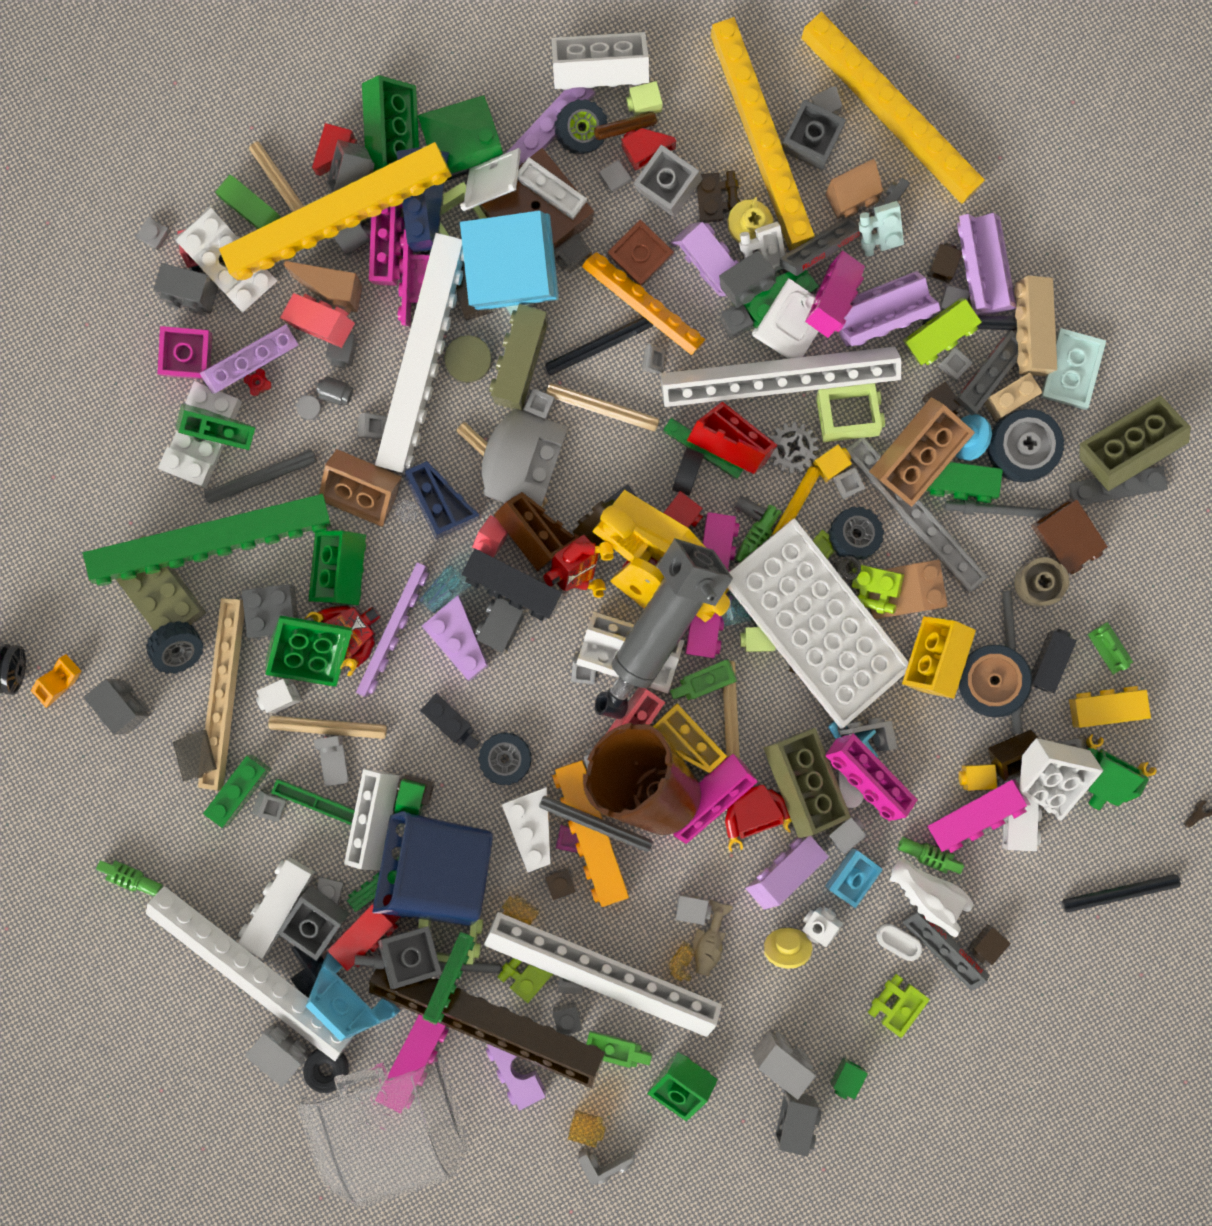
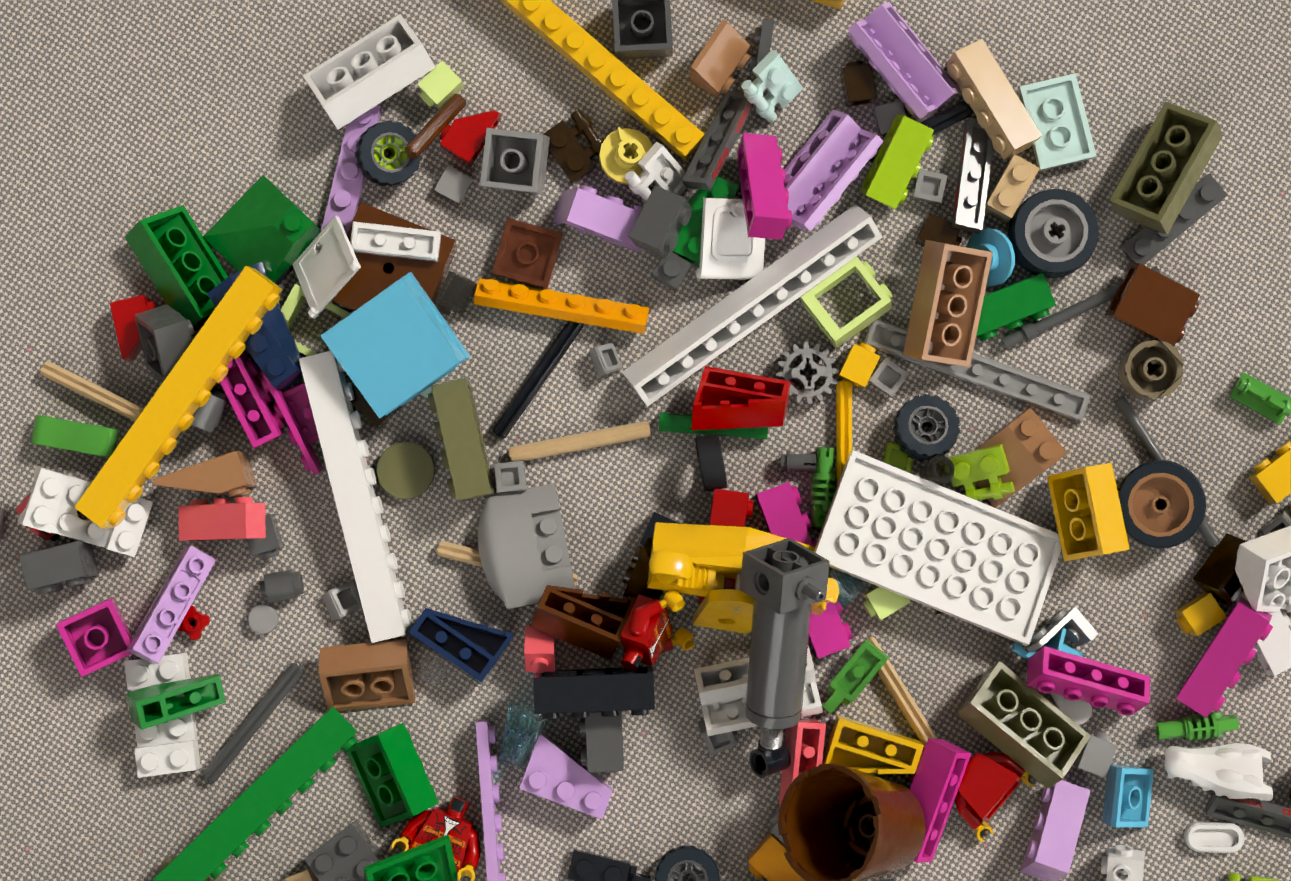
camera: 35 degrees left, 0 degrees up
(1052, 660) = (1208, 446): black brick -> none

